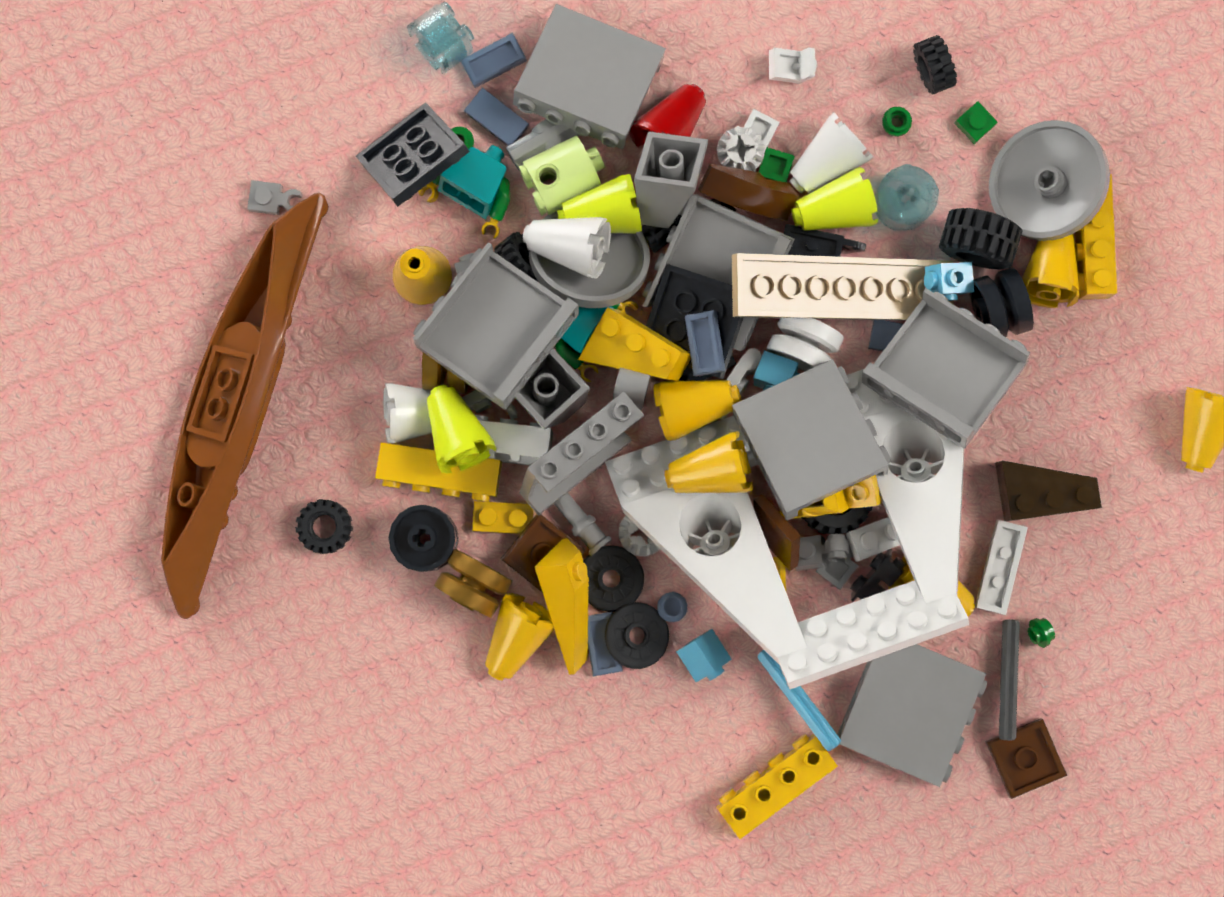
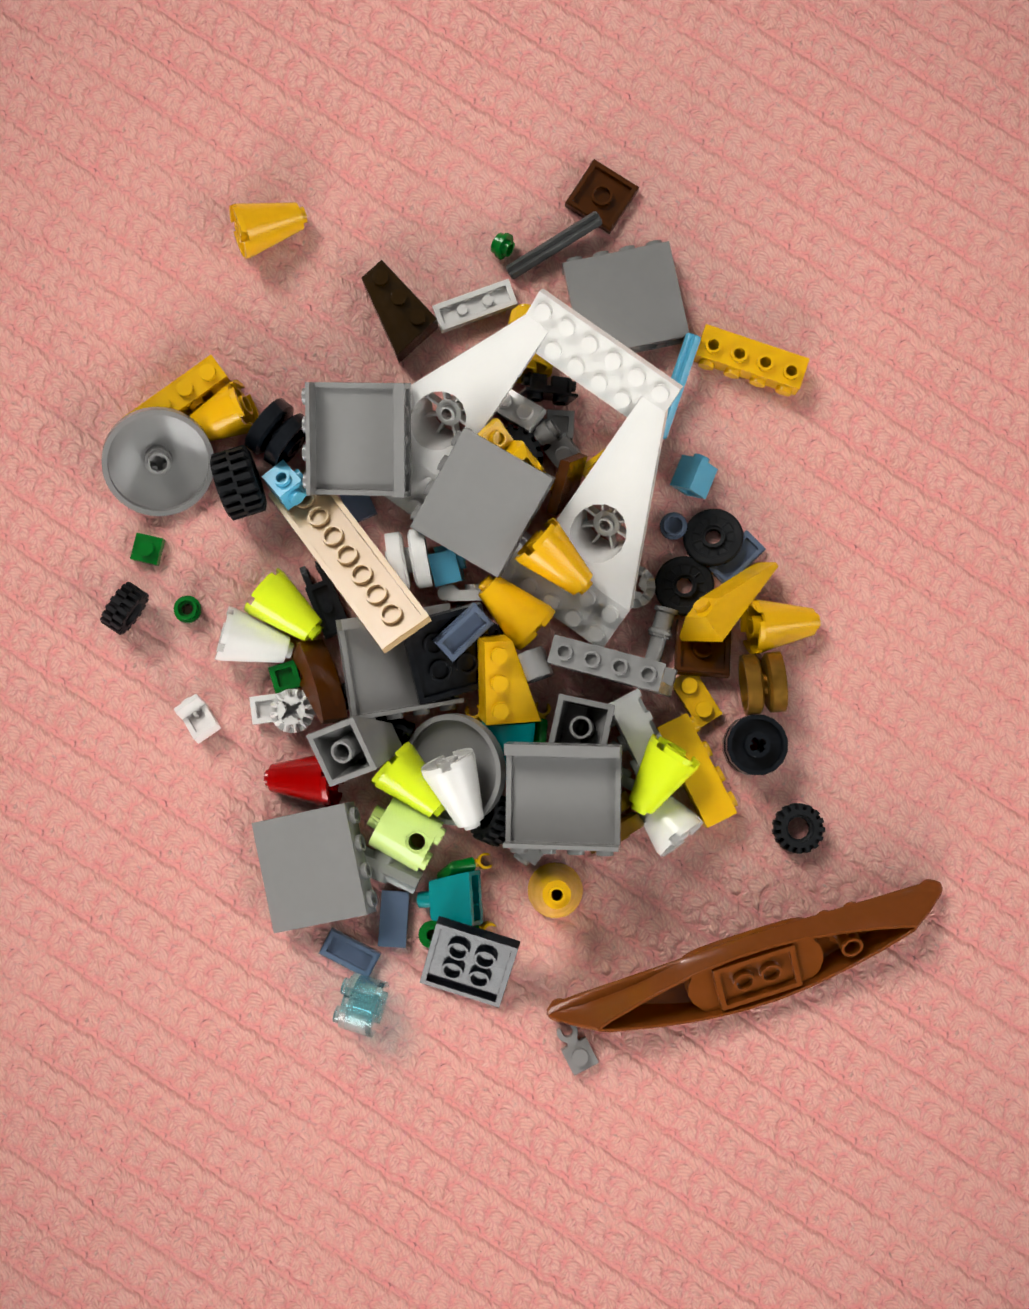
camera: 130 degrees left, 0 degrees up
(918, 186) = (232, 550): clear light blue brick -> none

